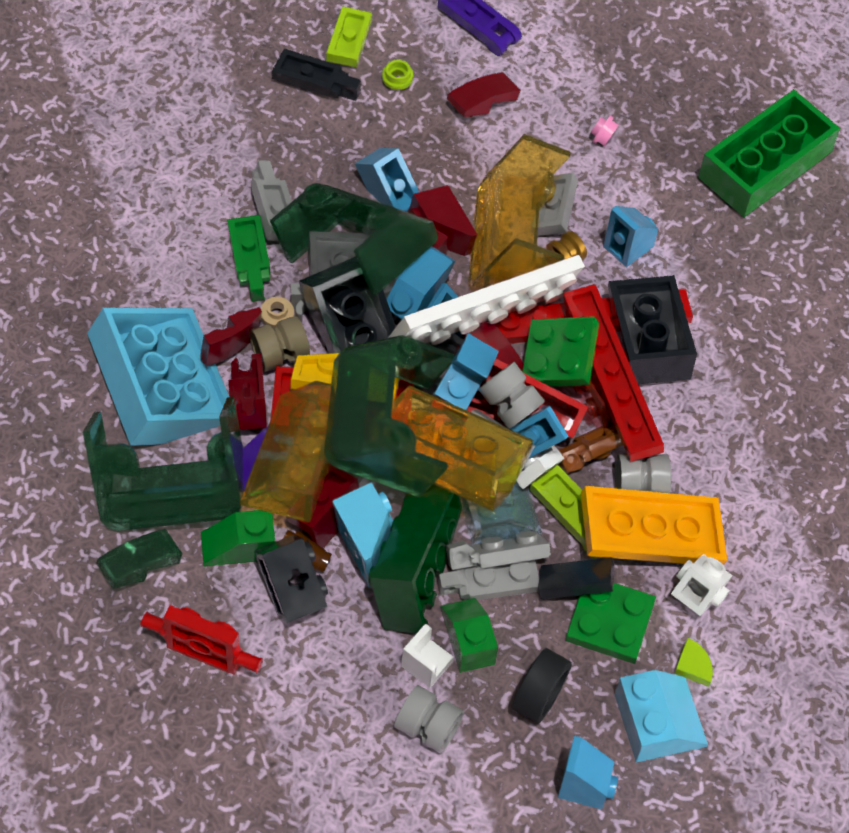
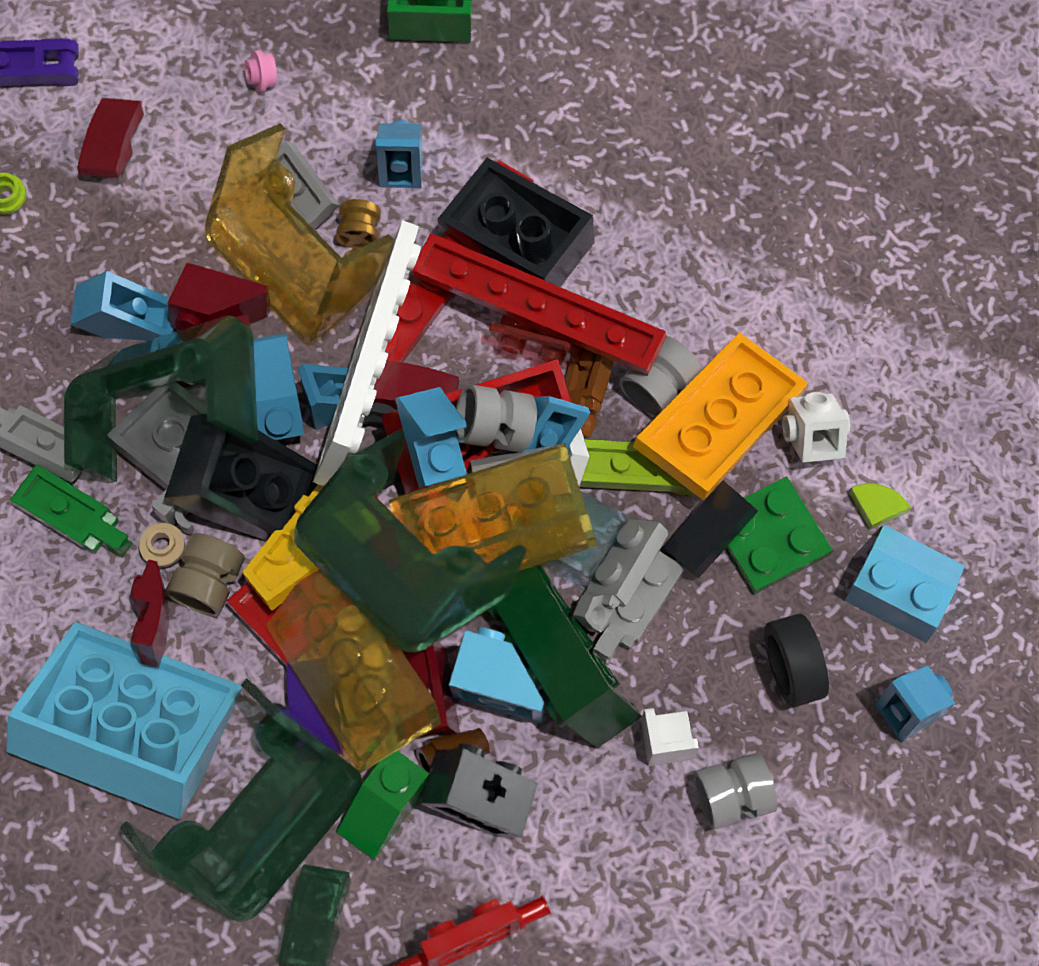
camera: 45 degrees left, 10 degrees up
(249, 393) = (233, 654): dark red hinge -> none
(470, 634) = (675, 673): green slope -> none
(561, 350) = (471, 329): green plate -> none

